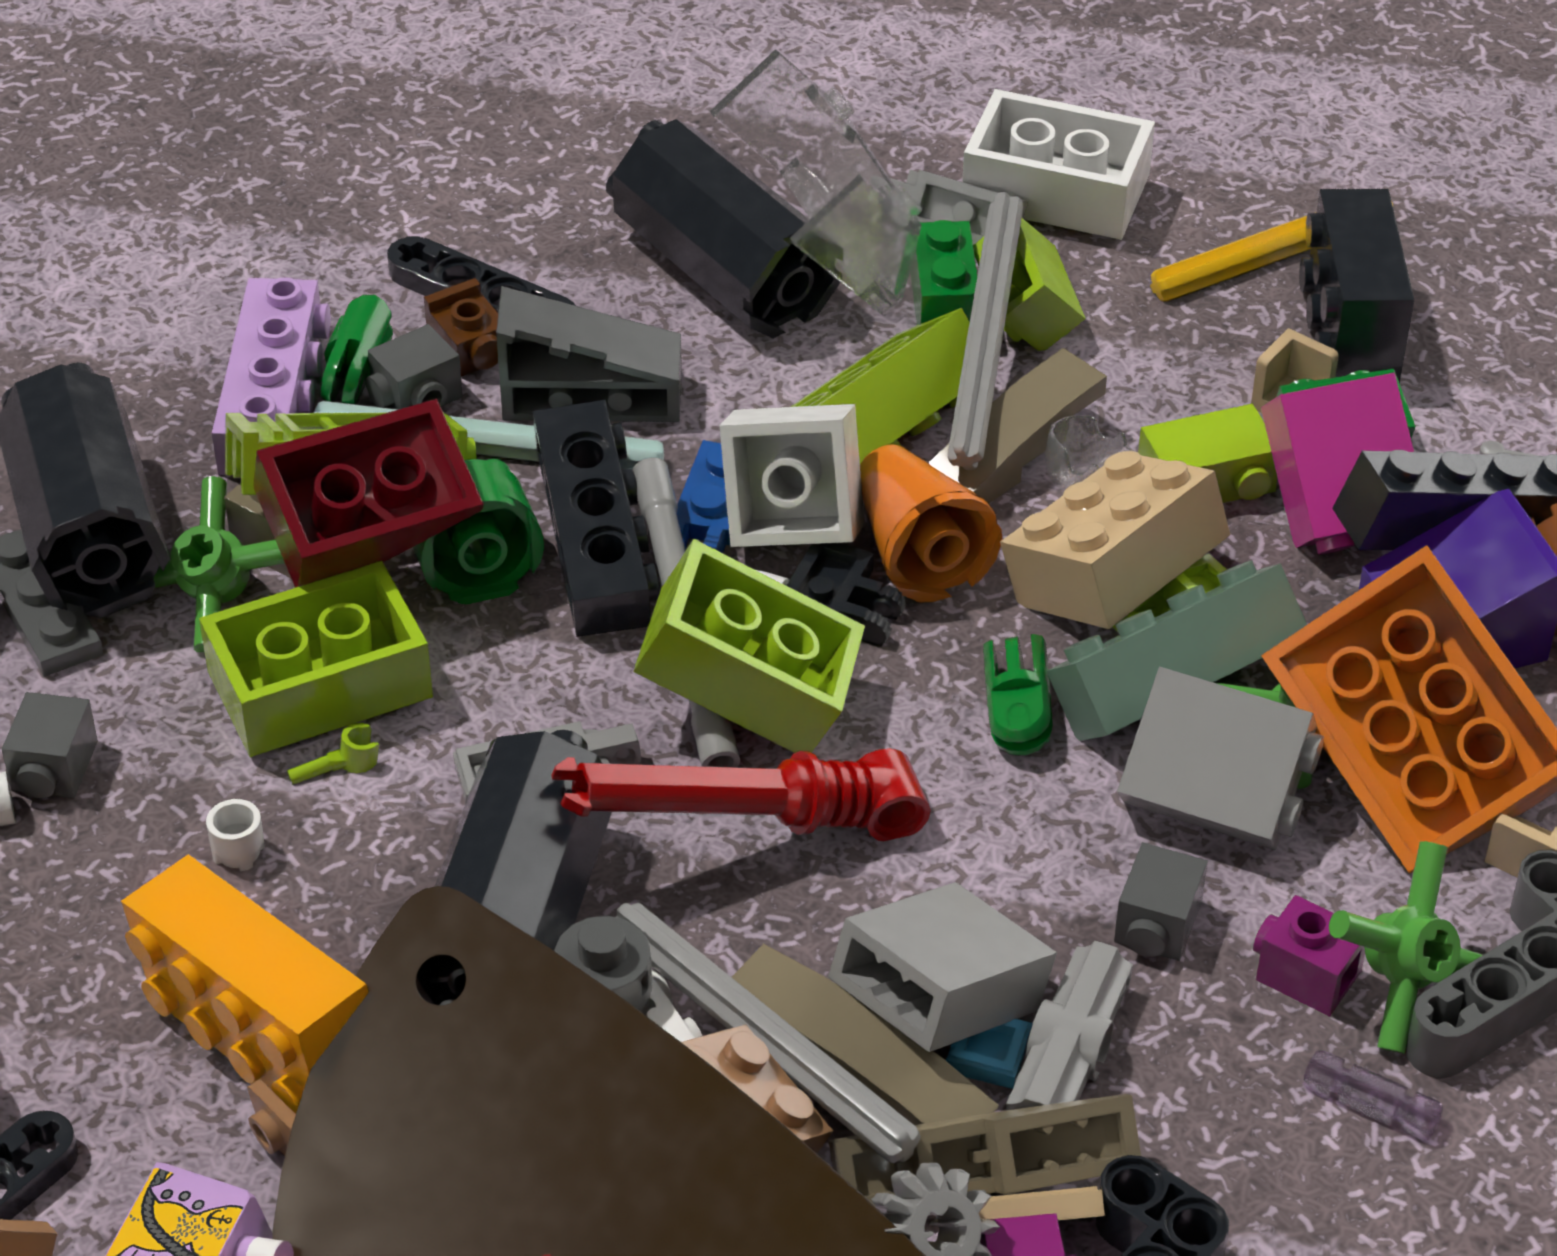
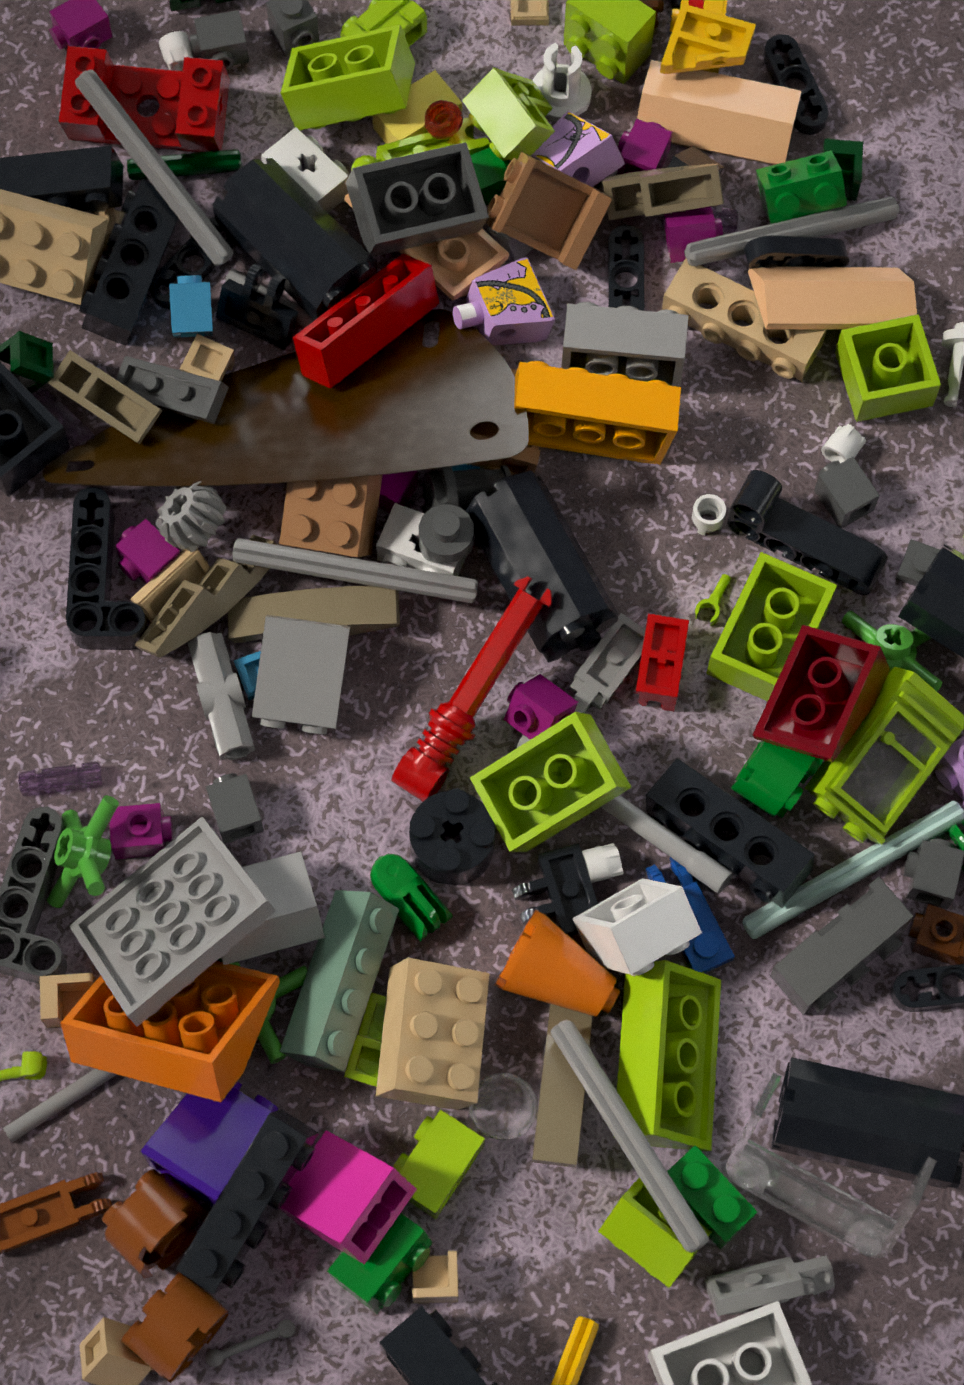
camera: 140 degrees right, 25 degrees up
(113, 1057) = (625, 342): none -> light grey brick
(159, 736) = (803, 536): none -> black beam
(471, 708) = (662, 660): none -> red hinge
(676, 735) = (537, 706): none -> magenta brick
(915, 698) = (453, 814): none -> black brick
(1342, 768) = (171, 920): none -> light grey plate

